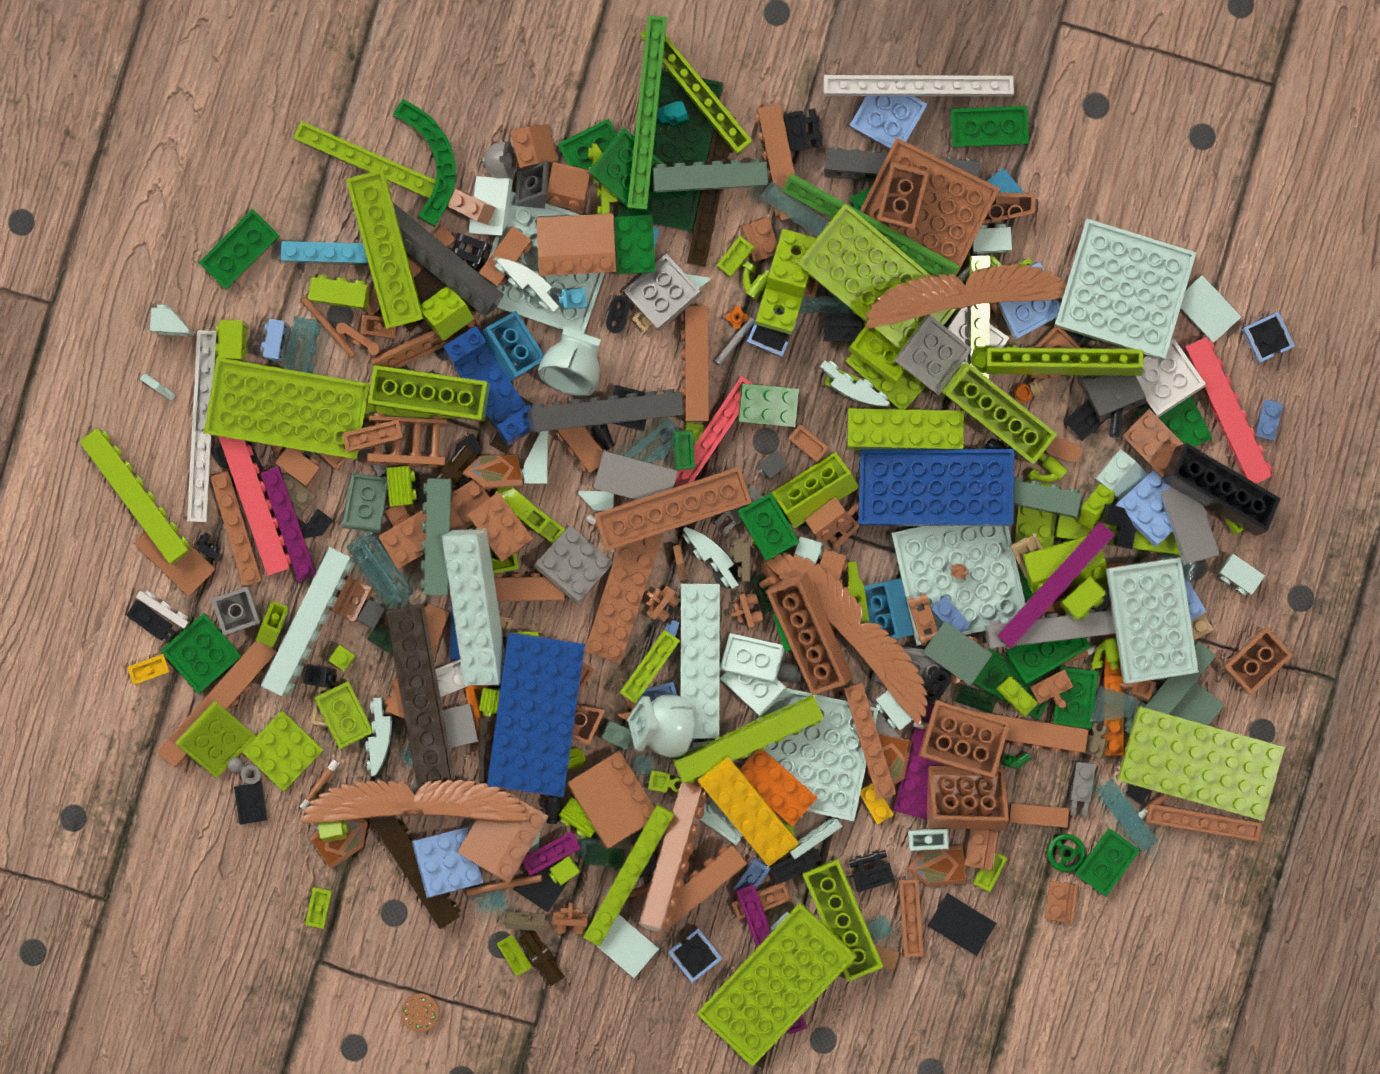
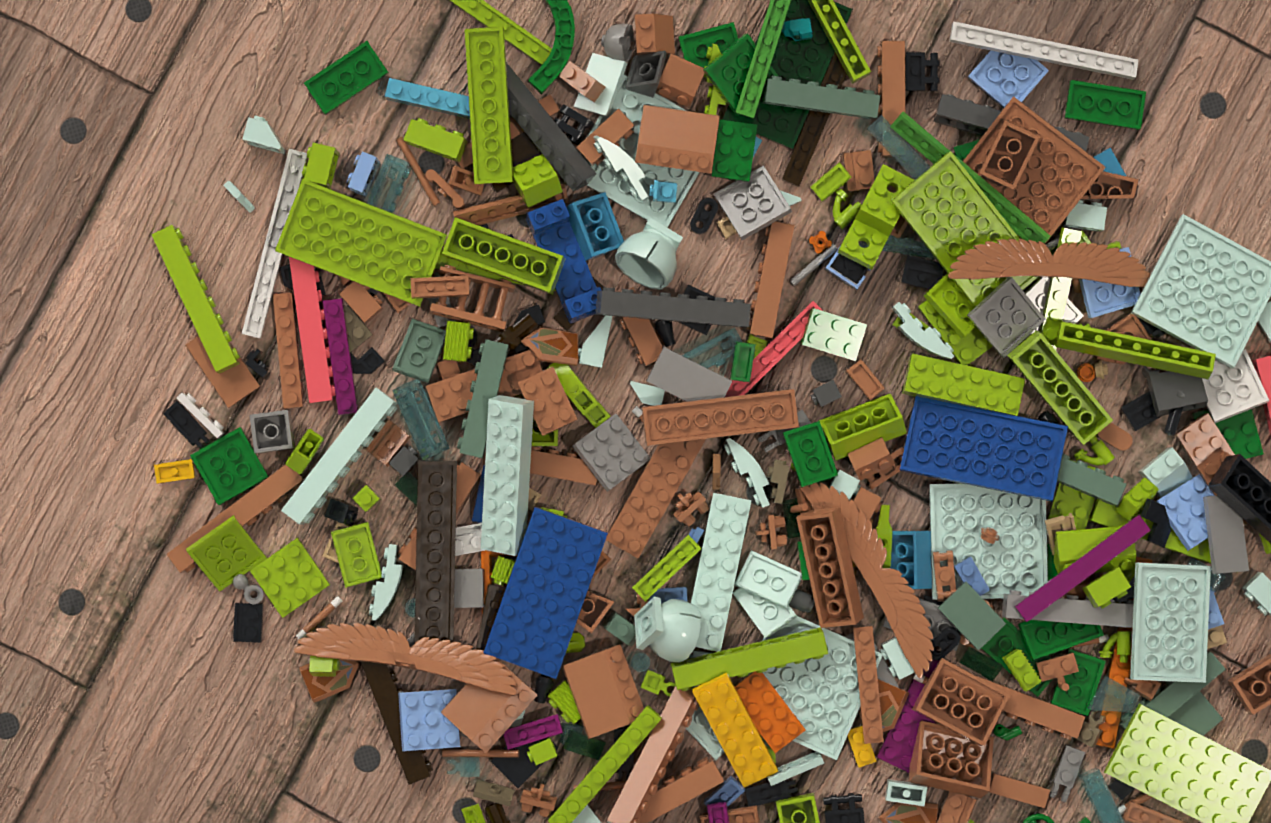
camera: 10 degrees right, 0 degrees up
(318, 907) = (294, 738): lime plate -> none

